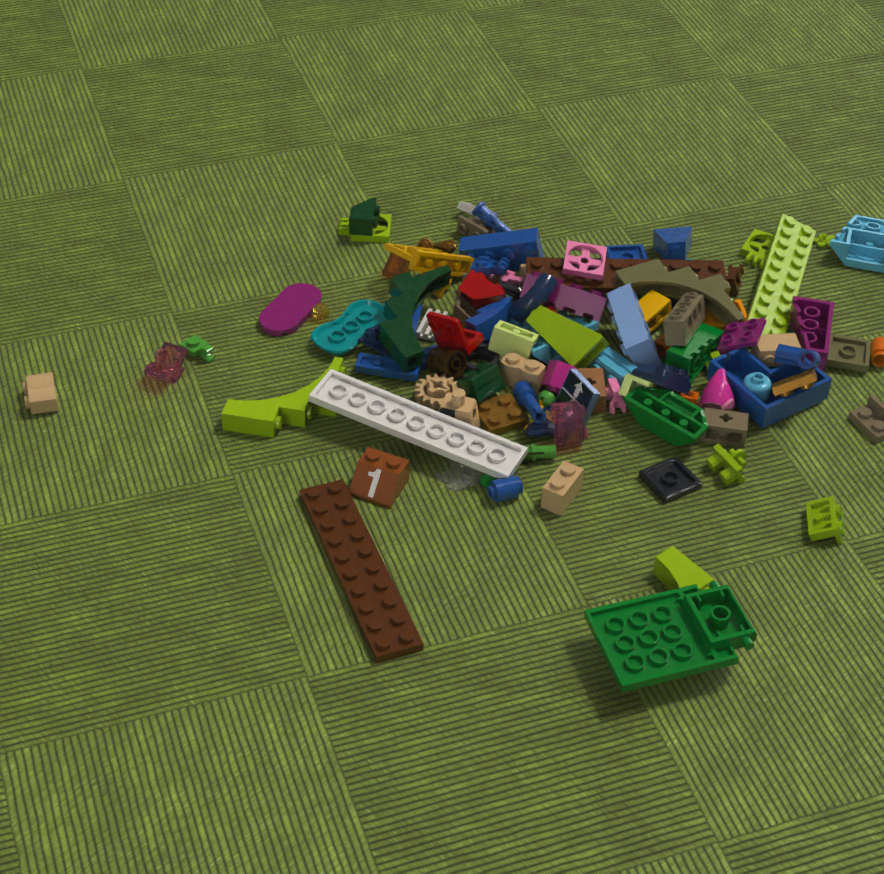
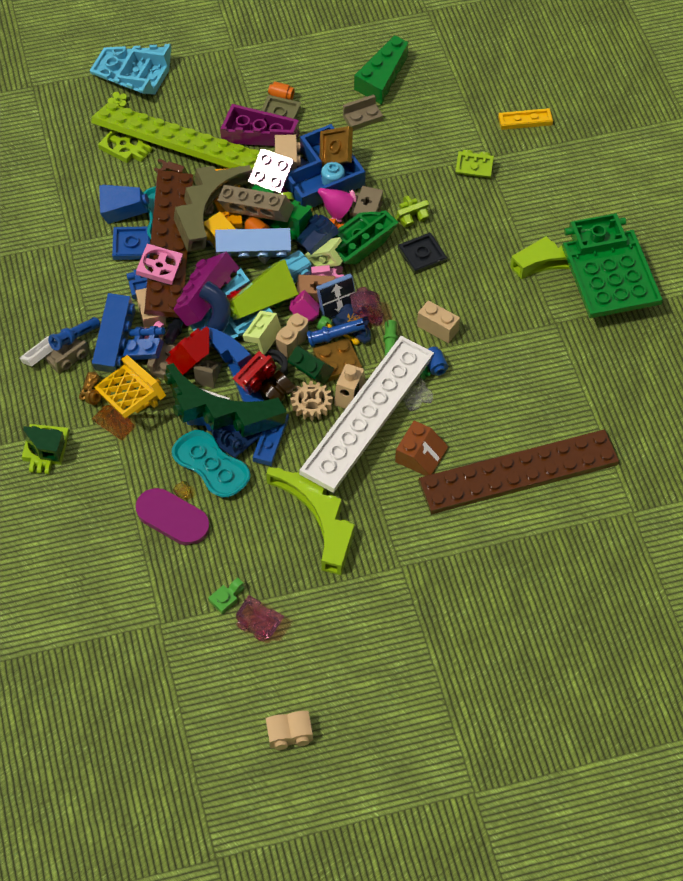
camera: 85 degrees left, 15 degrees up
(795, 356) = (313, 133): blue piece -> none

